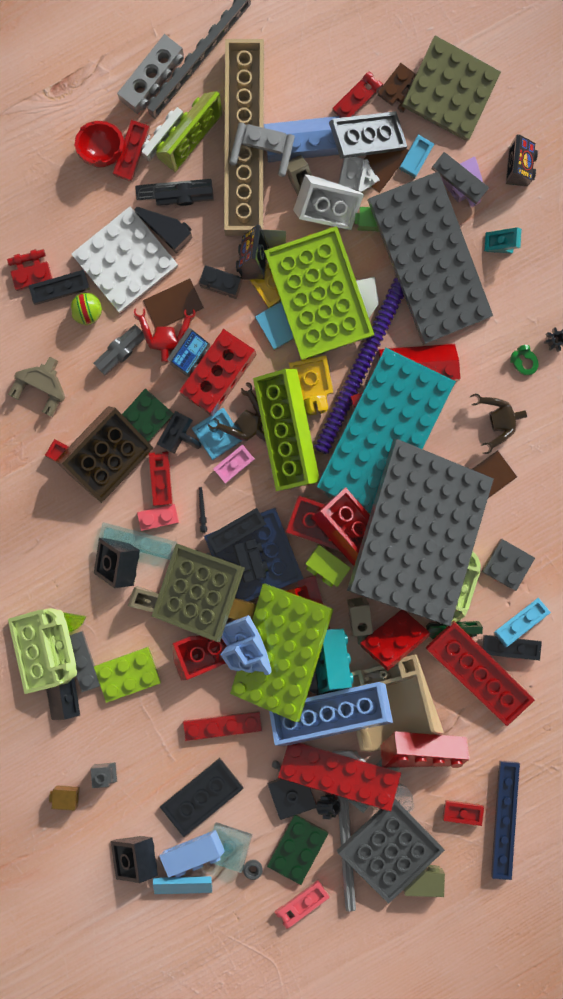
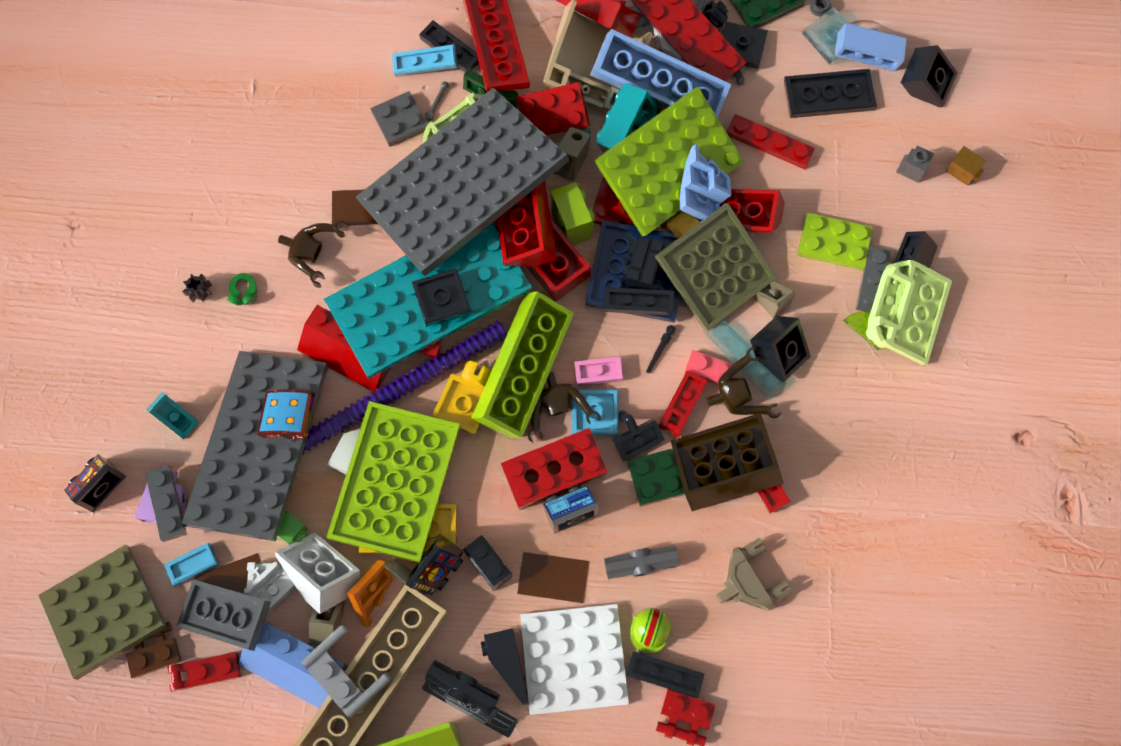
camera: 145 degrees left, 15 degrees down
(126, 508) = (736, 392): none -> dark brown piece
(164, 338) = (586, 542): red piece -> none
(182, 885) = (895, 28): medium azure tile -> none
(275, 325) = (461, 483): medium azure tile -> none
(285, 213) = (369, 591): none -> orange wing
(372, 433) = (441, 297): none -> black plate
(422, 286) = (286, 414): none -> slope
(488, 582) = (429, 114): none -> dark grey hinge

